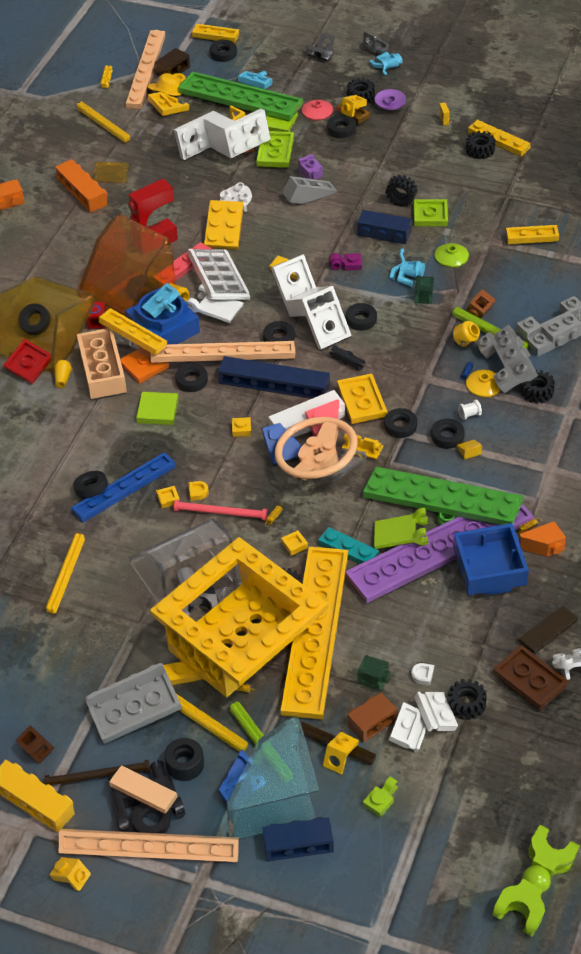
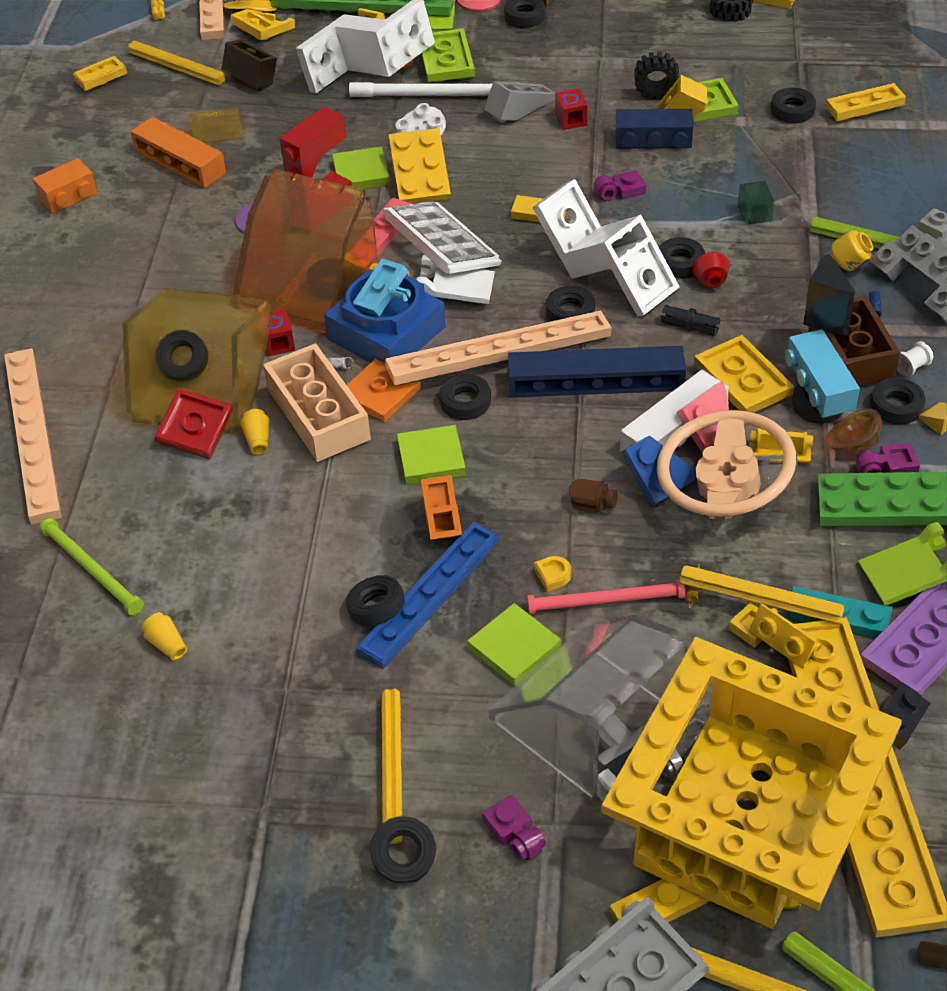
camera: 15 degrees left, 0 degrees up
(43, 607) = (380, 849): none -> black tyre
(52, 121) = (99, 73): none -> yellow plate
(116, 619) = (511, 822): none -> magenta plate
(133, 331) = (353, 342): yellow plate -> none
(146, 132) = (249, 64): none -> dark brown brick
(147, 440) = (440, 508): none -> orange brick
(158, 524) = (514, 644): none -> lime tile
(167, 496) = (508, 591): yellow tile -> none
(190, 218) = (363, 167): none -> lime tile
(217, 164) = (369, 89): none -> white piece
(238, 451) = (592, 495): none -> reddish brown arm
(241, 427) = (577, 456): yellow plate -> none
(304, 550) = (784, 636): none -> yellow hinge
(305, 526) = (761, 594): none -> yellow axle
(310, 168) = (508, 69): medium lavender brick -> none
(338, 203) = (571, 109): none -> red brick
(350, 608) = (907, 706): none -> black plate
(374, 328) = (711, 269): none -> red cone
(403, 406) = (822, 373): none -> medium azure brick
(410, 269) = (722, 178): medium azure piece -> none
(410, 447) = (856, 431): none -> clear orange piece
(411, 209) = (685, 95): none -> yellow slope
(418, 361) = (829, 299): none -> black slope
(425, 467) = (891, 458): none -> magenta plate
(435, 391) = (868, 347): none -> reddish brown brick
(451, 255) = (764, 150): lime dish -> none
(481, 304) = (846, 211): dark orange brick -> none
(482, 383) = (908, 317): yellow dish -> none
(484, 220) = (793, 114): none -> black tyre

